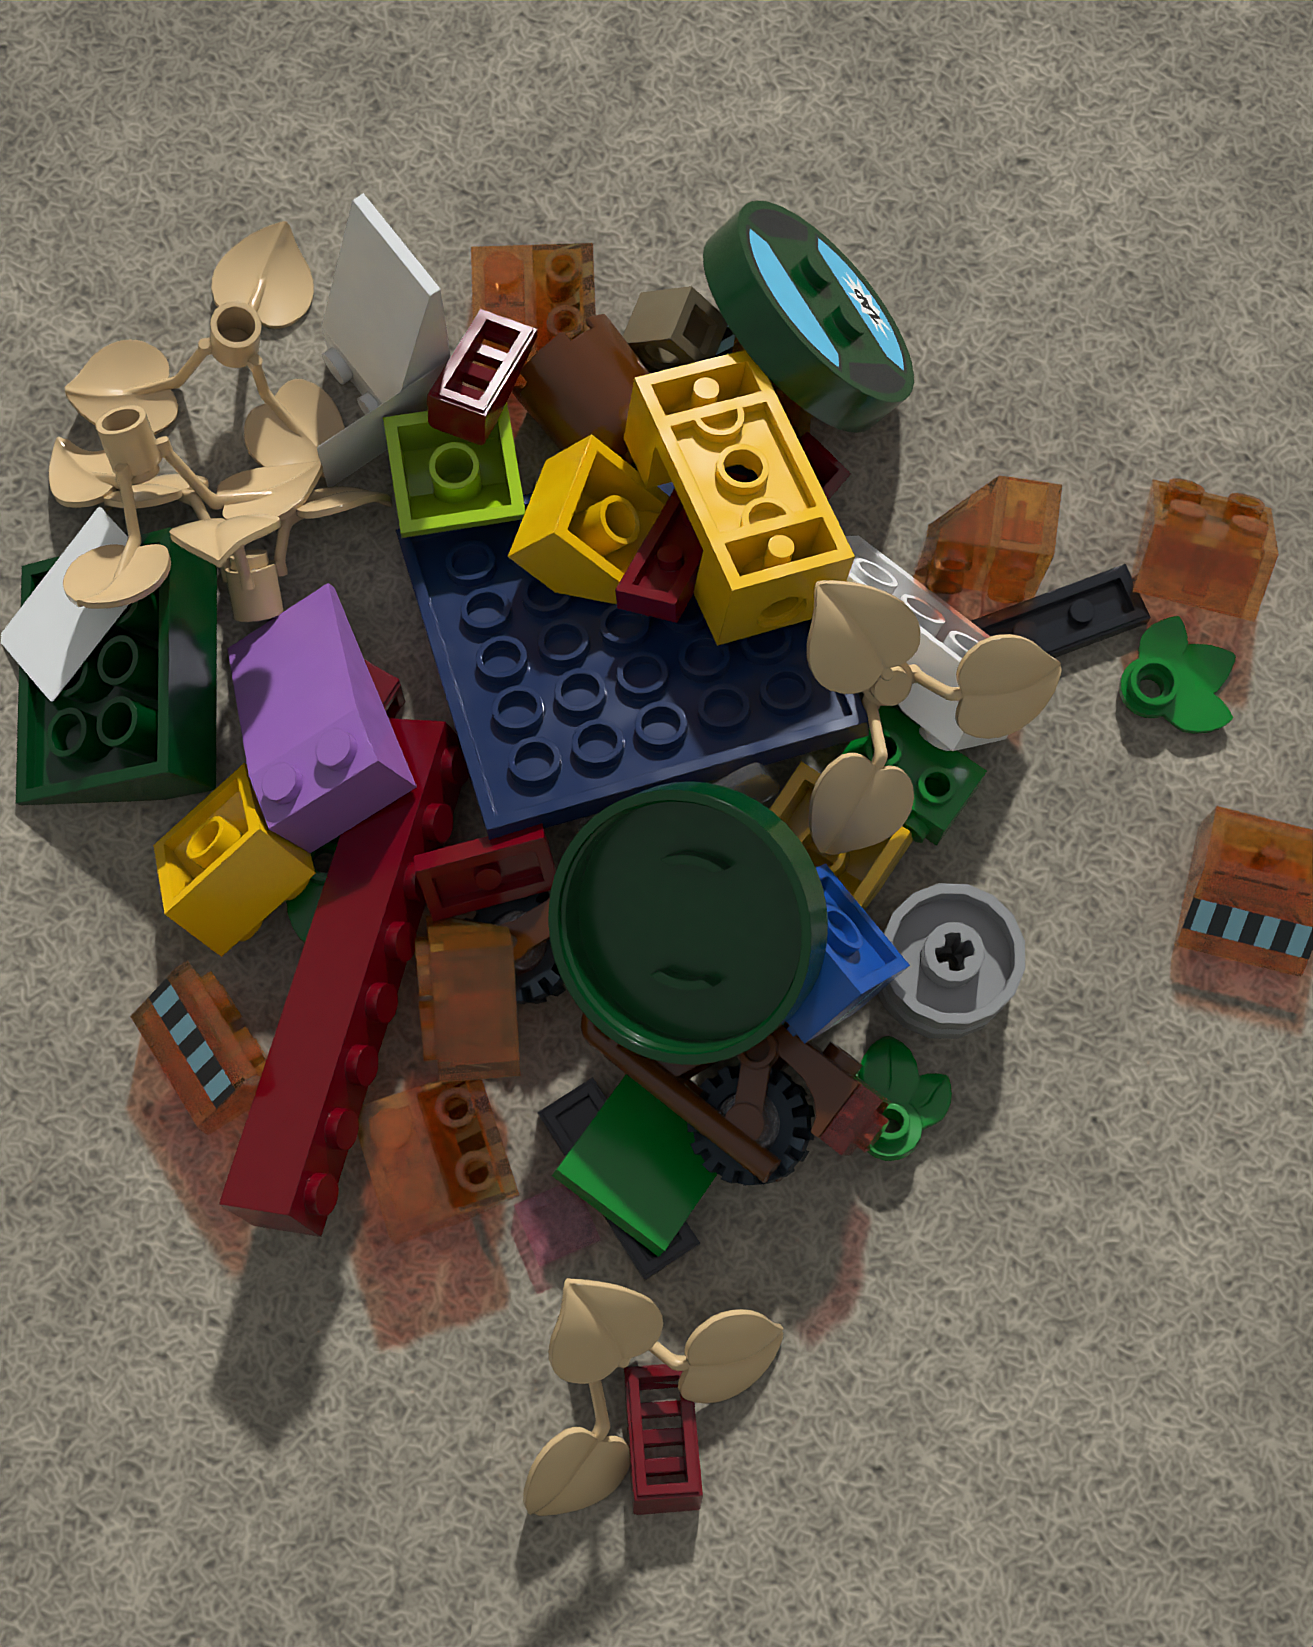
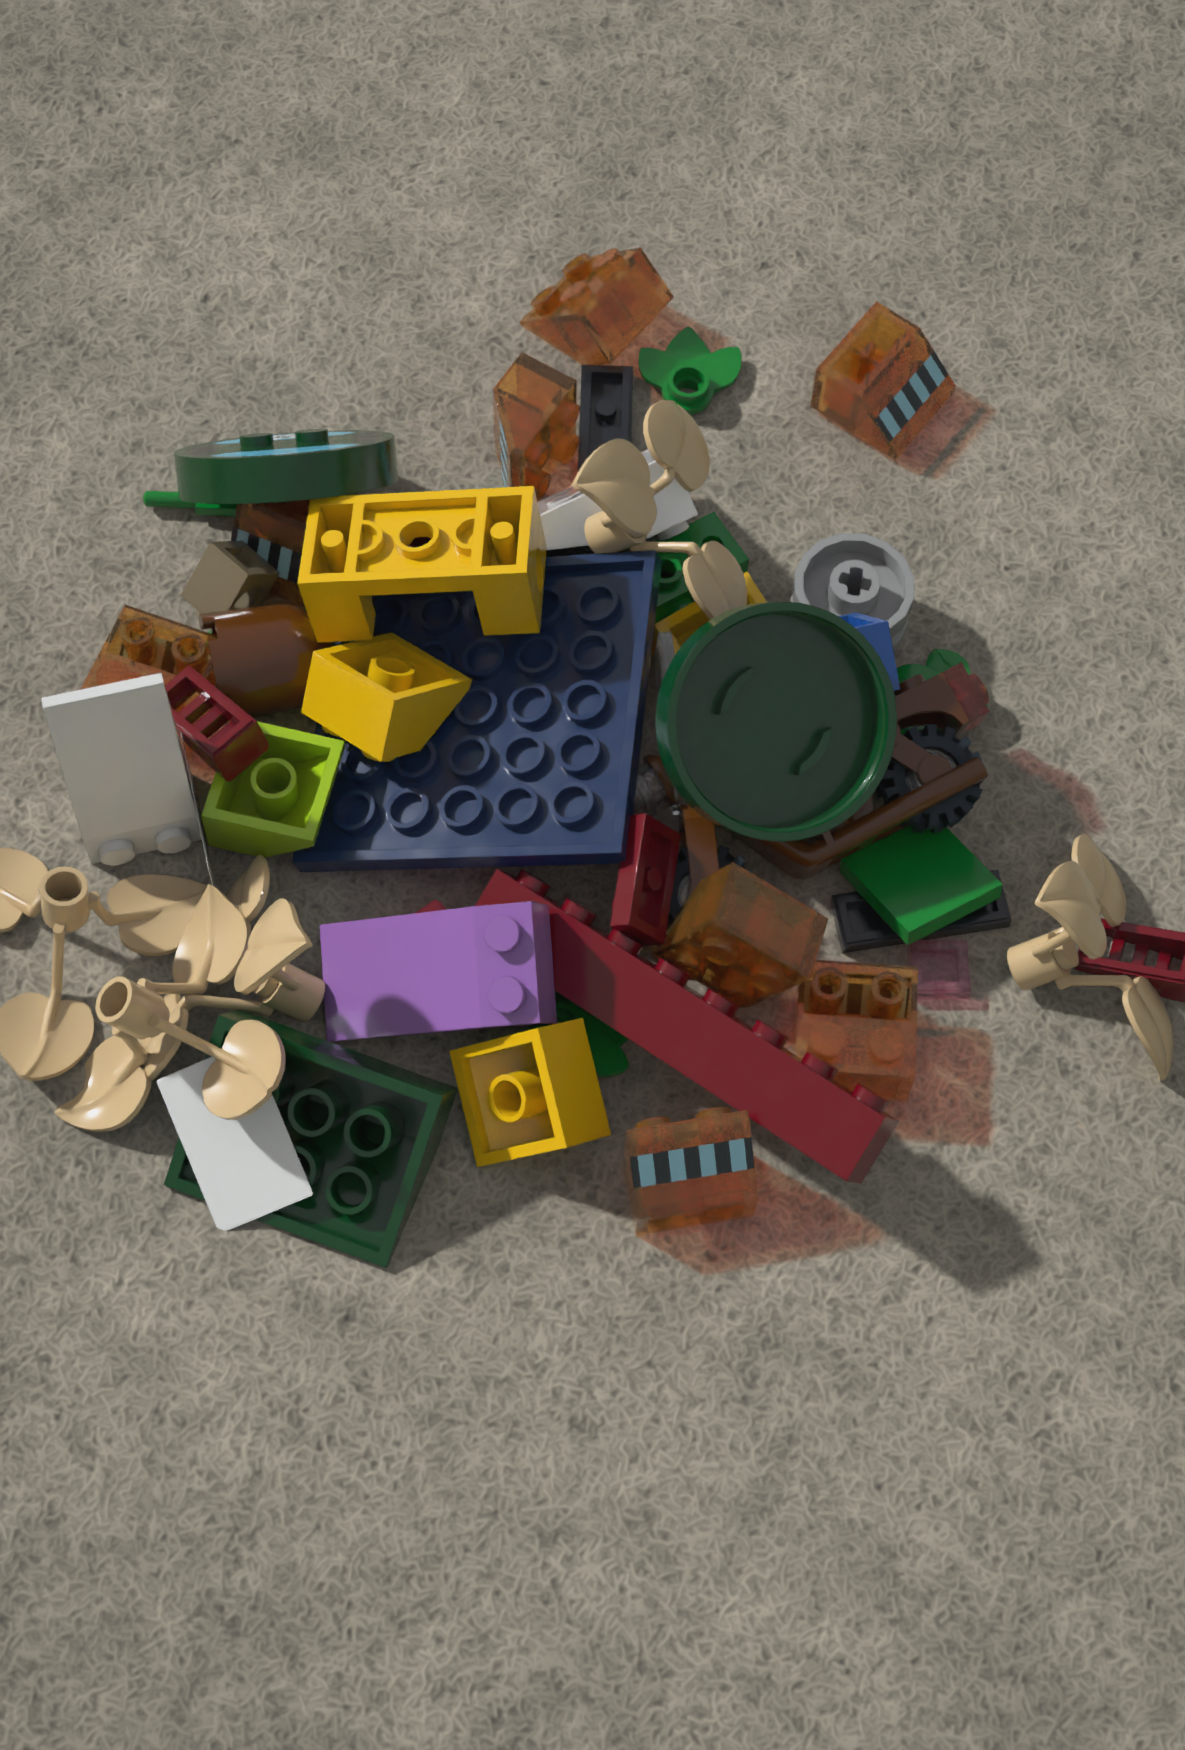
camera: 65 degrees left, 10 degrees down
(665, 565) = (439, 637): dark red plate -> none

